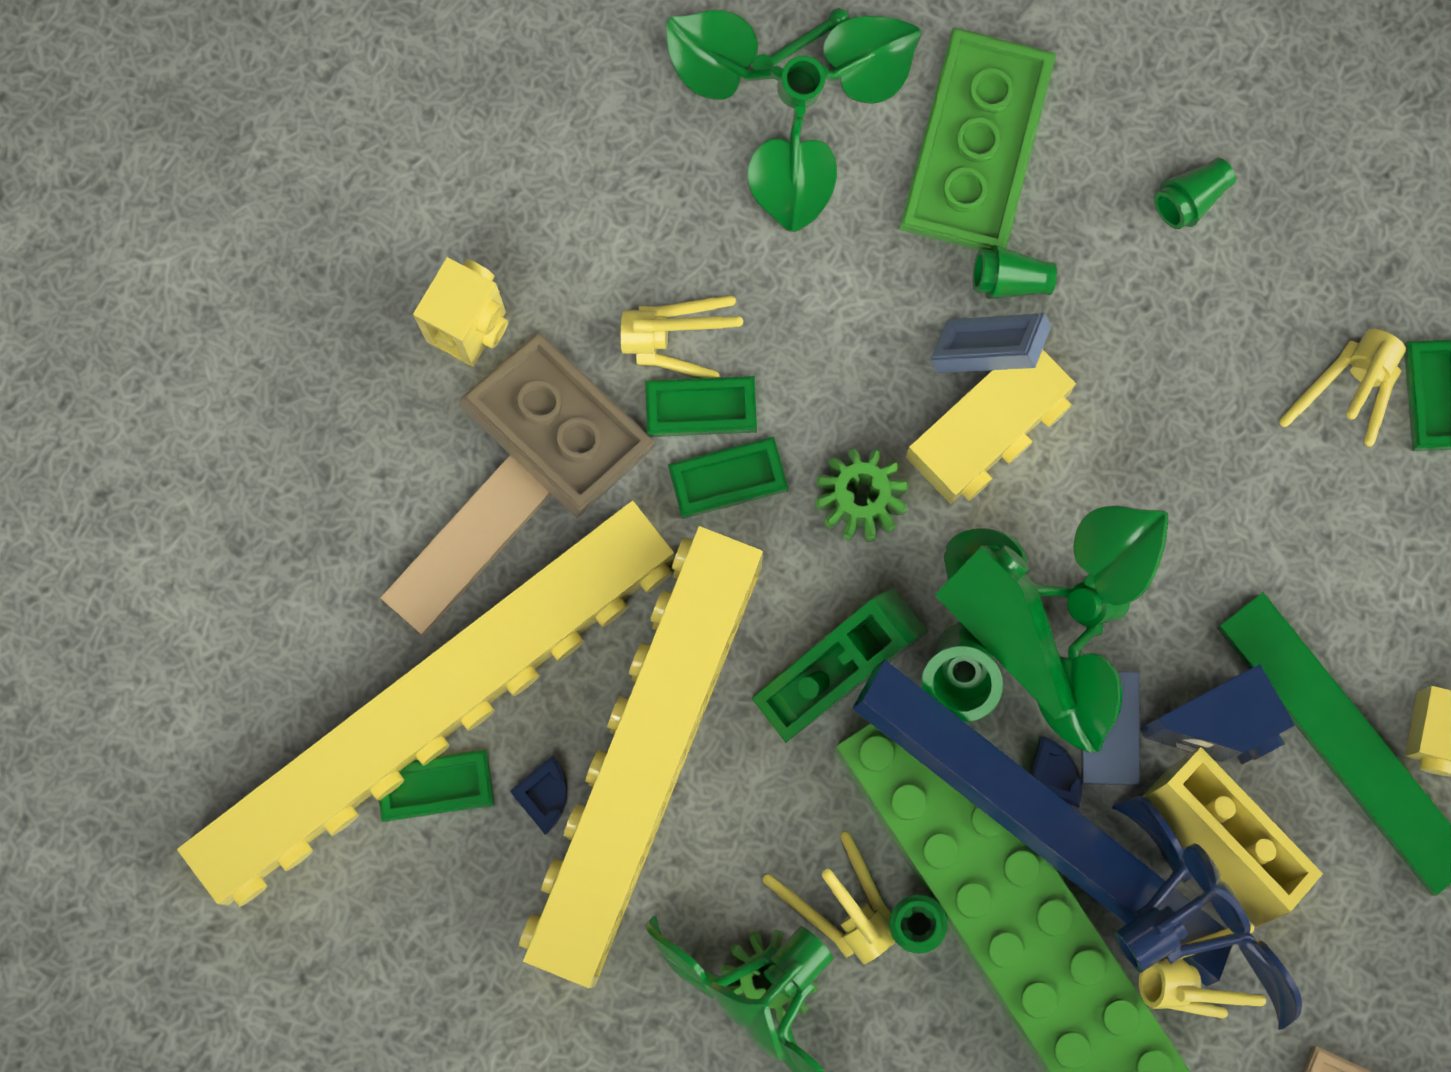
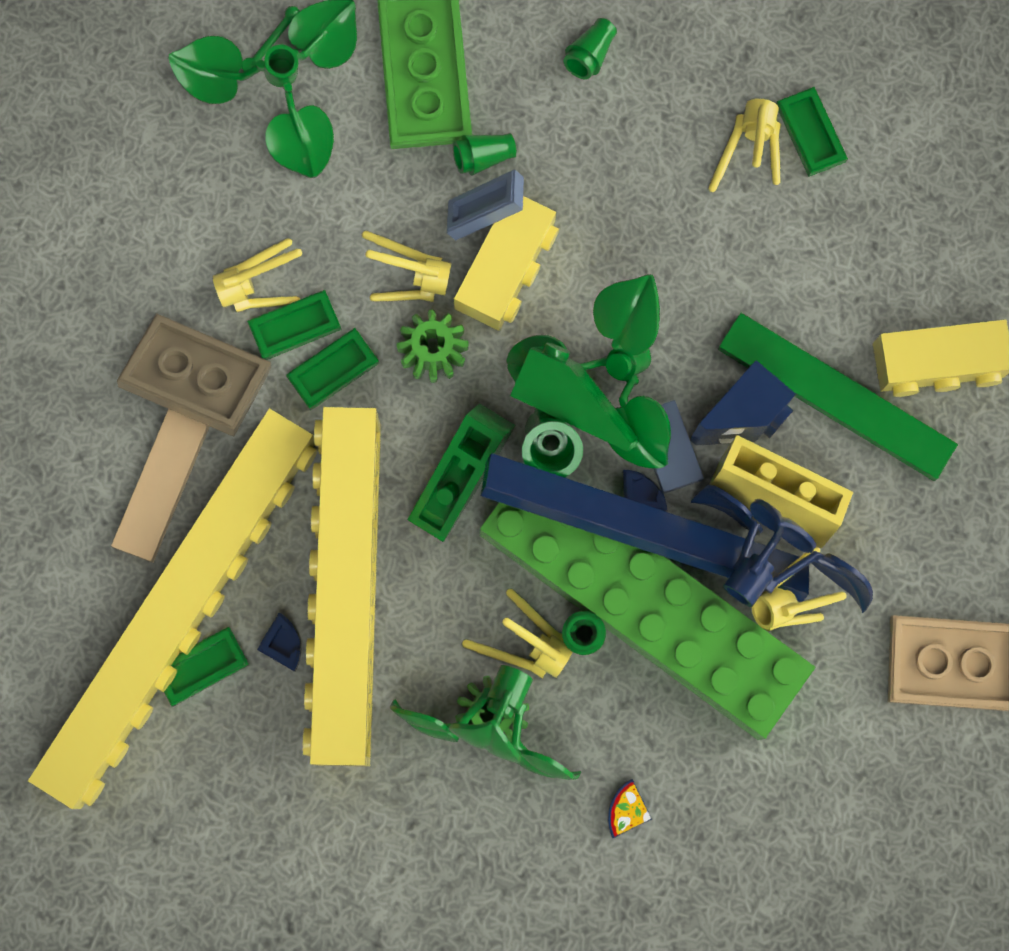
camera: 25 degrees left, 0 degrees up
(462, 311) = (94, 317): light yellow brick -> none
(892, 399) = (430, 271): none -> light yellow plant

